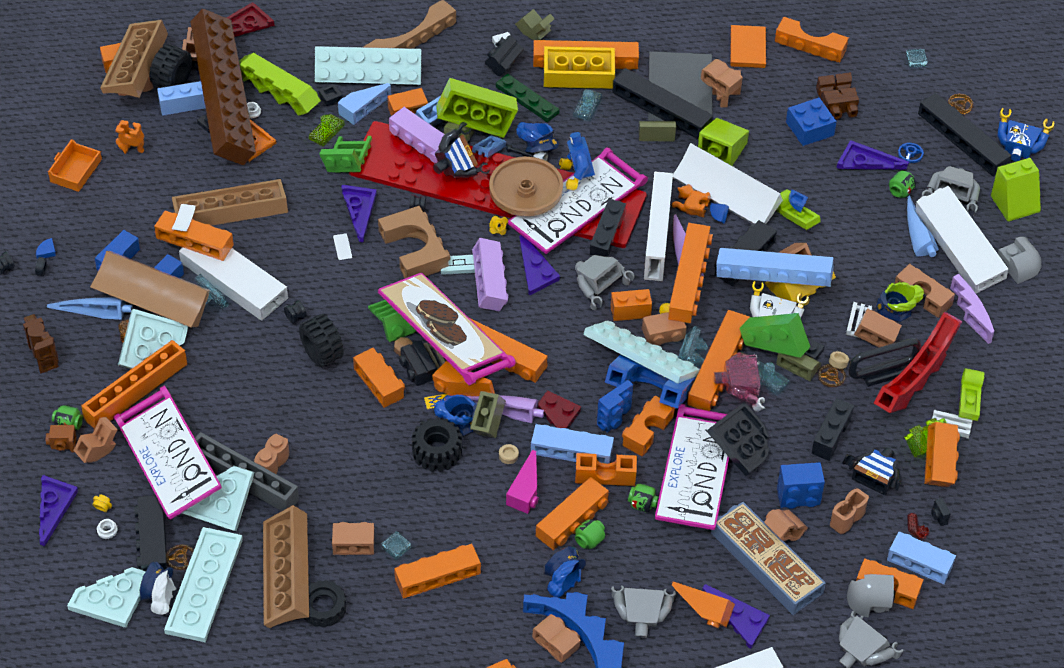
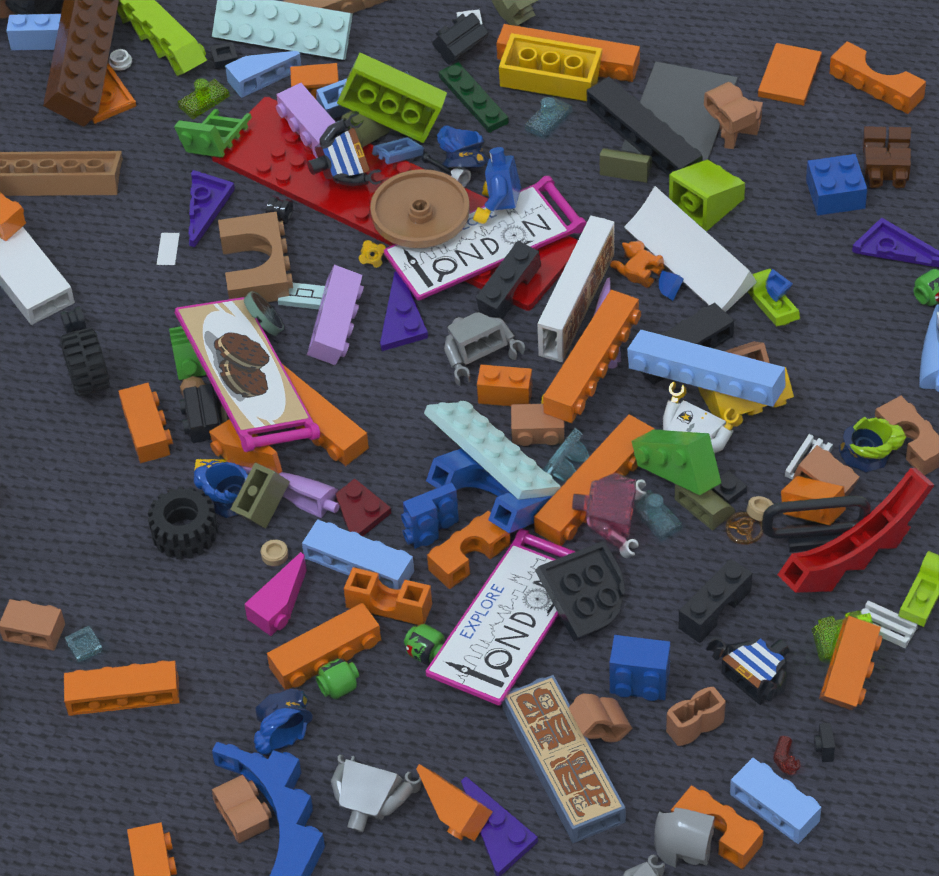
camera: 20 degrees right, 0 degrees up
(437, 281) = (261, 309): none -> tile
(870, 341) = (806, 489): none -> orange brick

